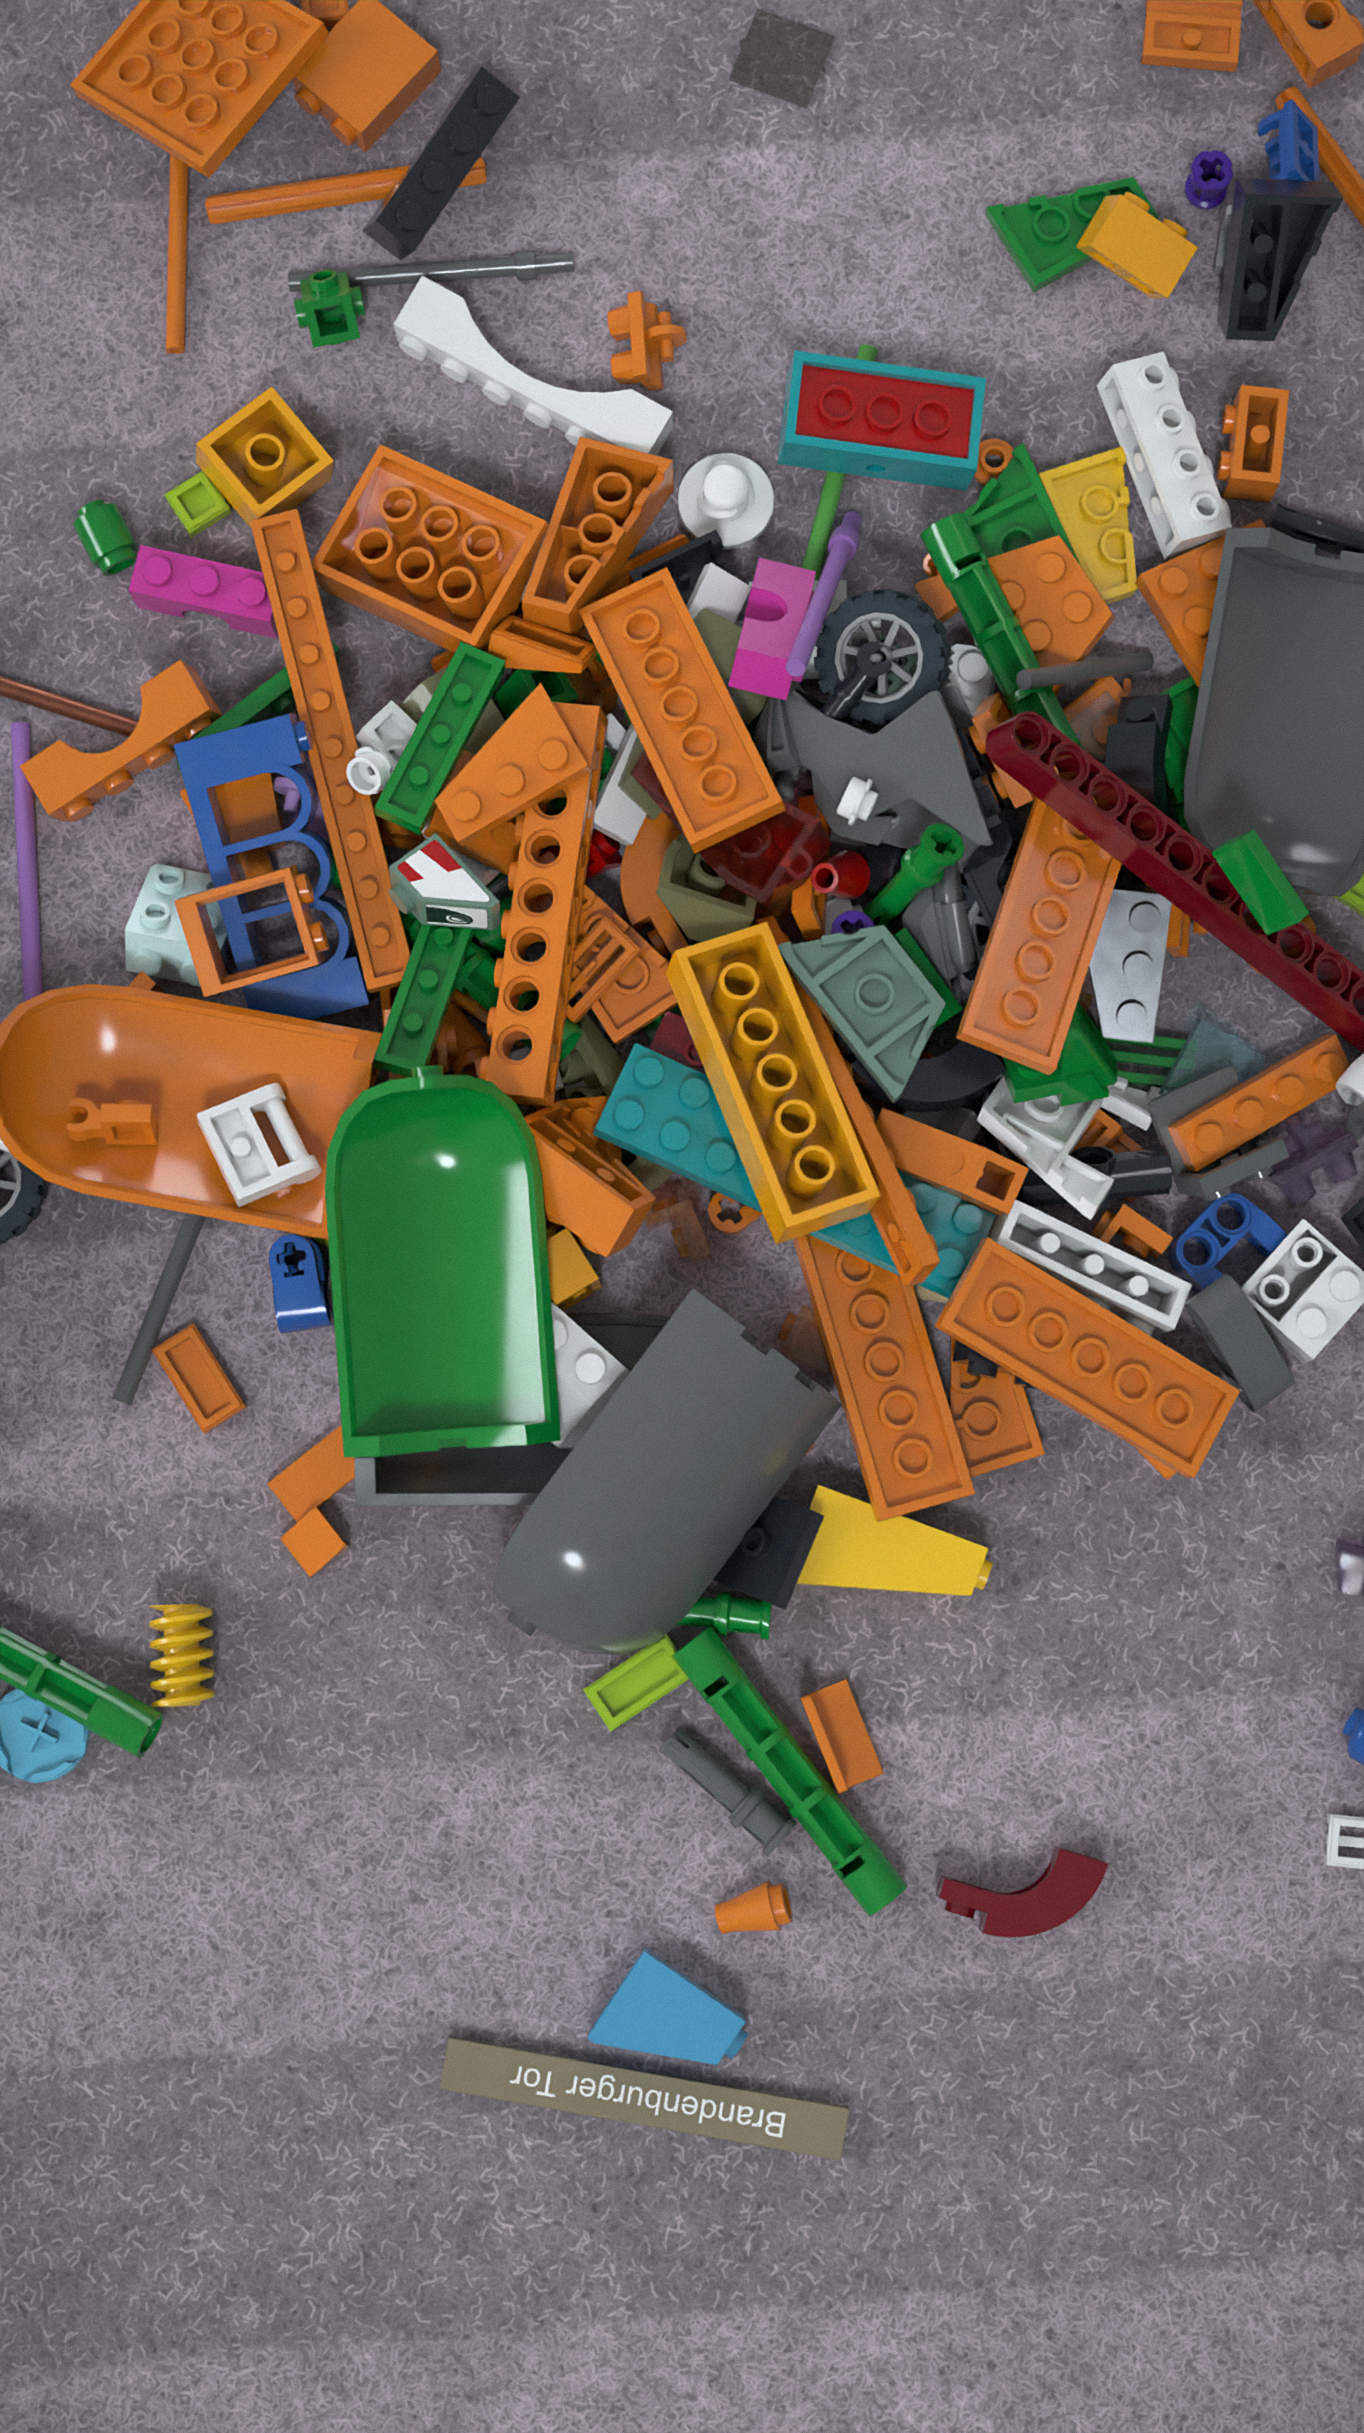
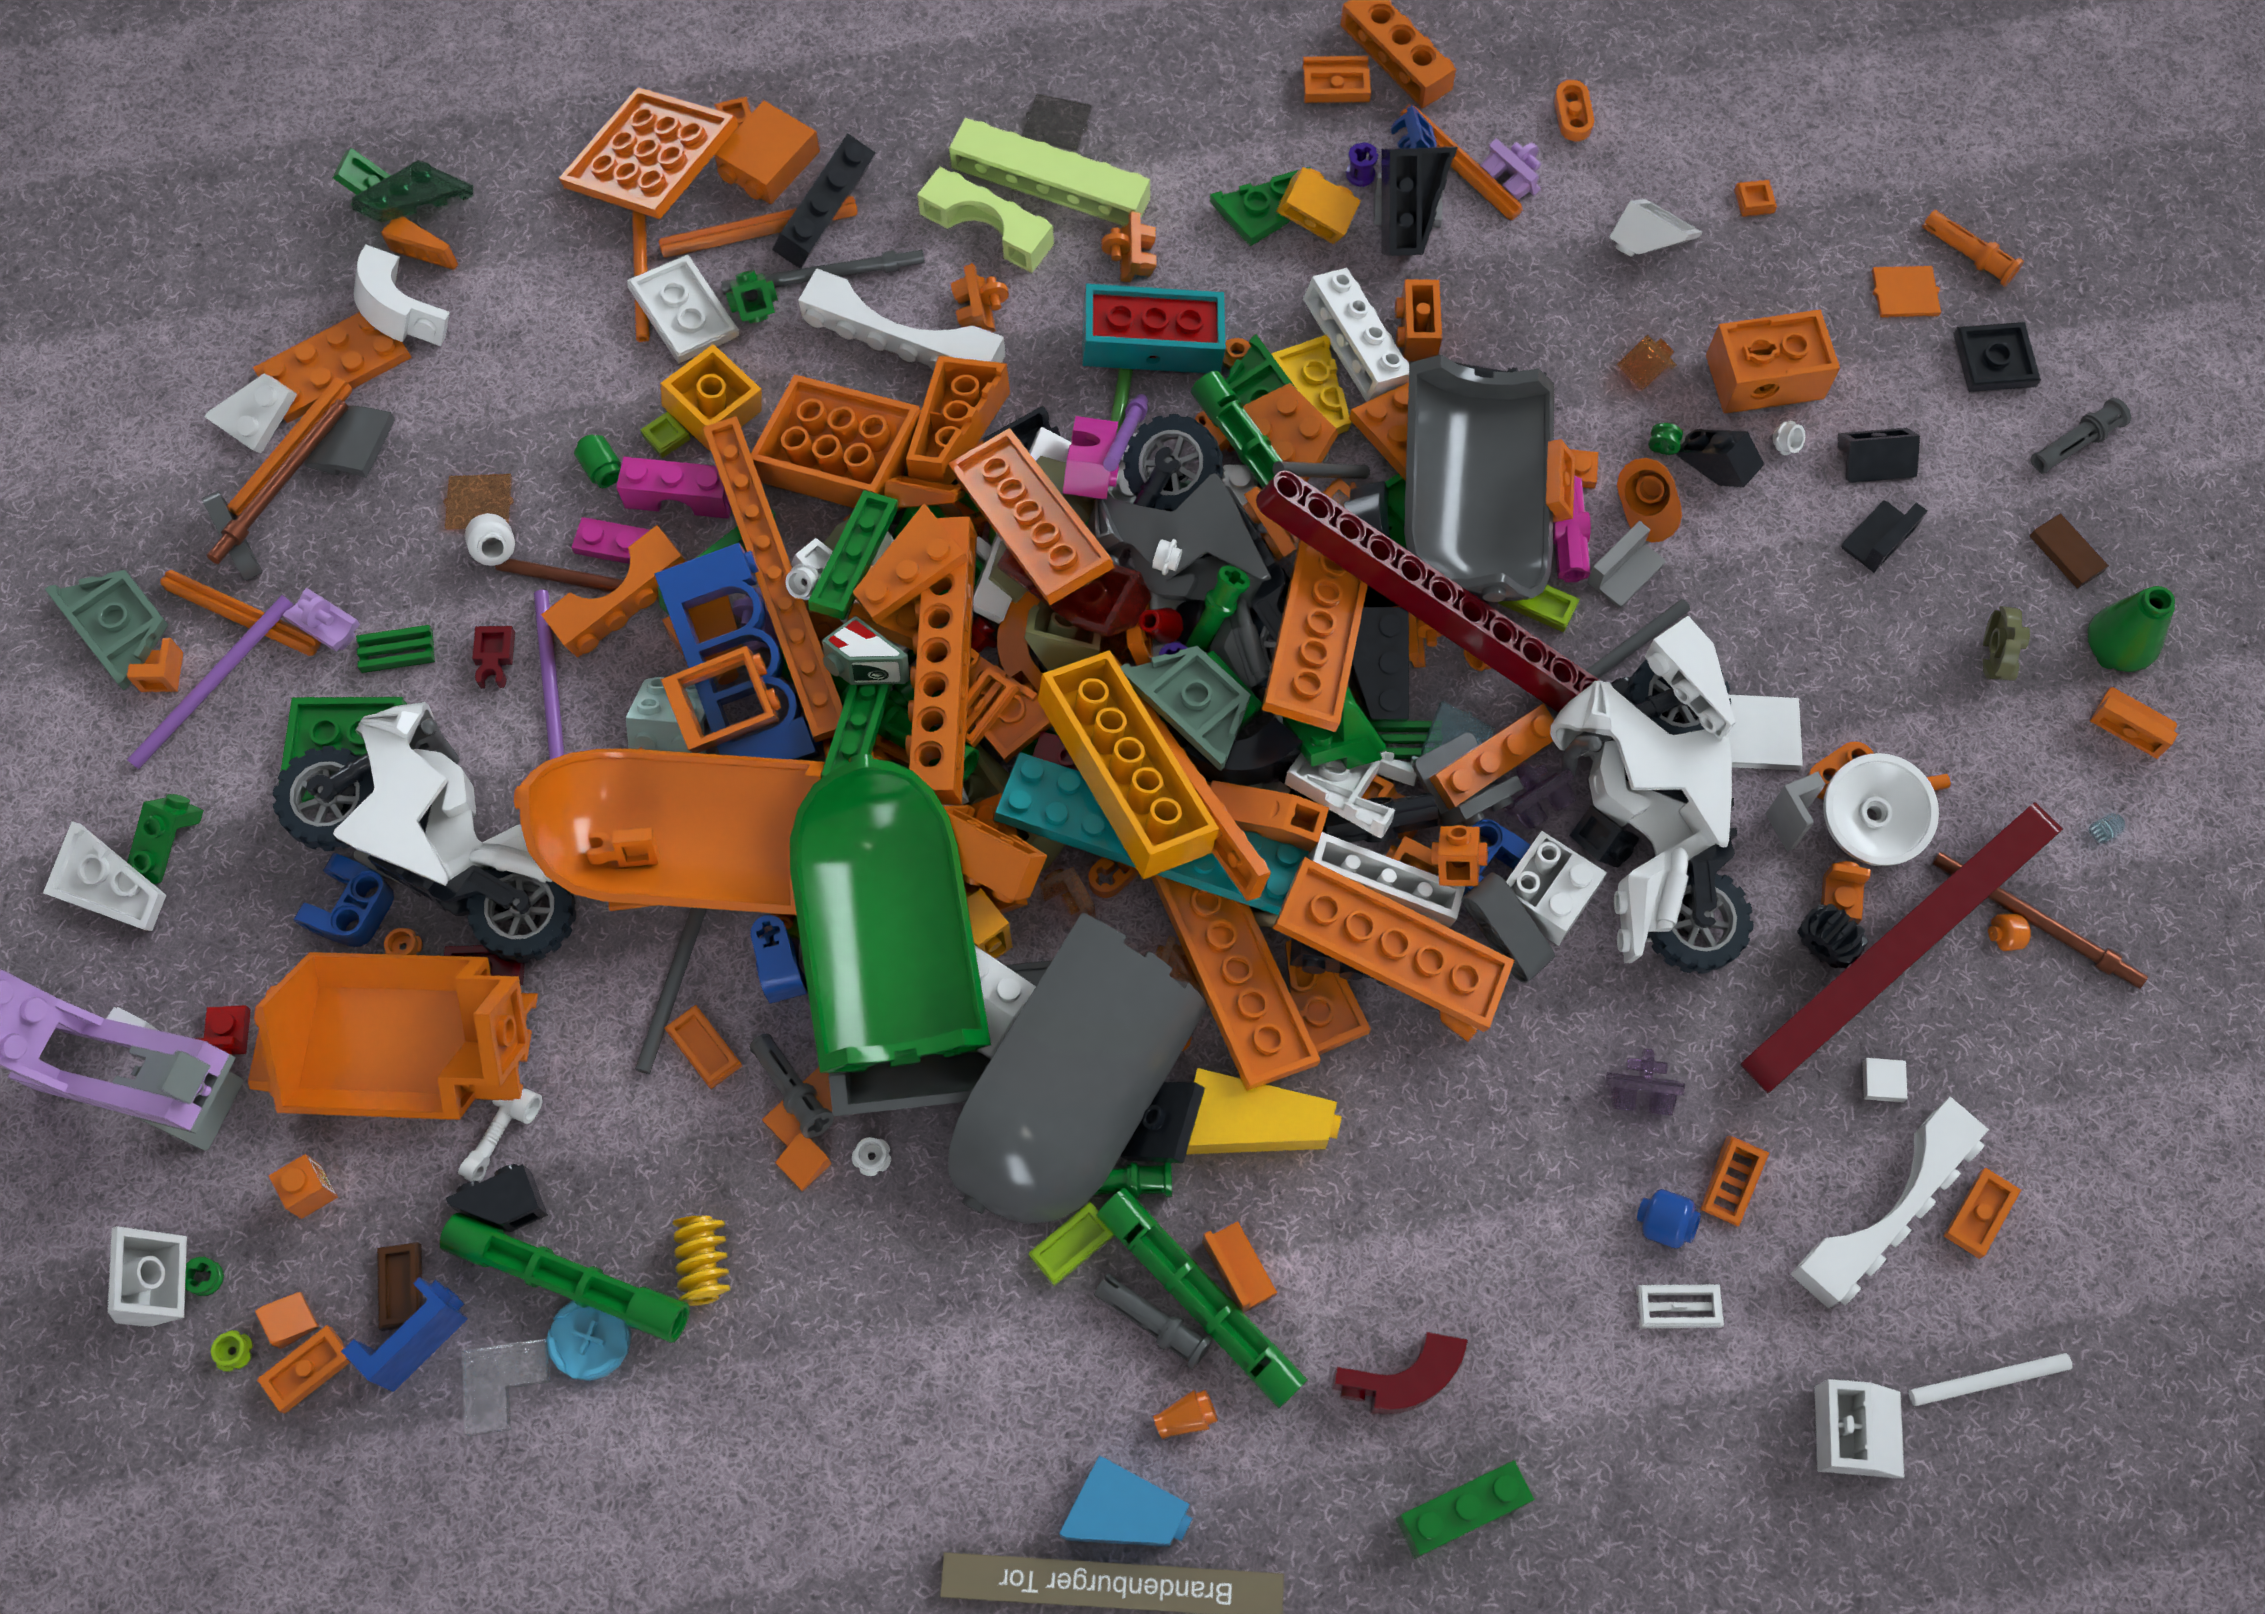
camera: 10 degrees left, 15 degrees down
(115, 656) = (605, 539): none -> dark pink plate
(233, 312) = (682, 308): none -> white tile
(243, 1150) = (726, 857): white plate -> none
(315, 1465) = (798, 1096): none -> dark grey pin
(387, 1541) = (866, 1147): none -> white plate
(621, 178) = (953, 200): none -> yellowish green arch
(728, 496) = (1049, 387): white plate -> none
(763, 147) = (1048, 172): none -> yellowish green brick
(858, 281) = (1126, 246): none -> orange hips
(1075, 2064) = (1464, 1509): none -> green arch
(1189, 1248) = (1459, 855): none -> orange brick
(1260, 882) = (1471, 583): green tile -> none

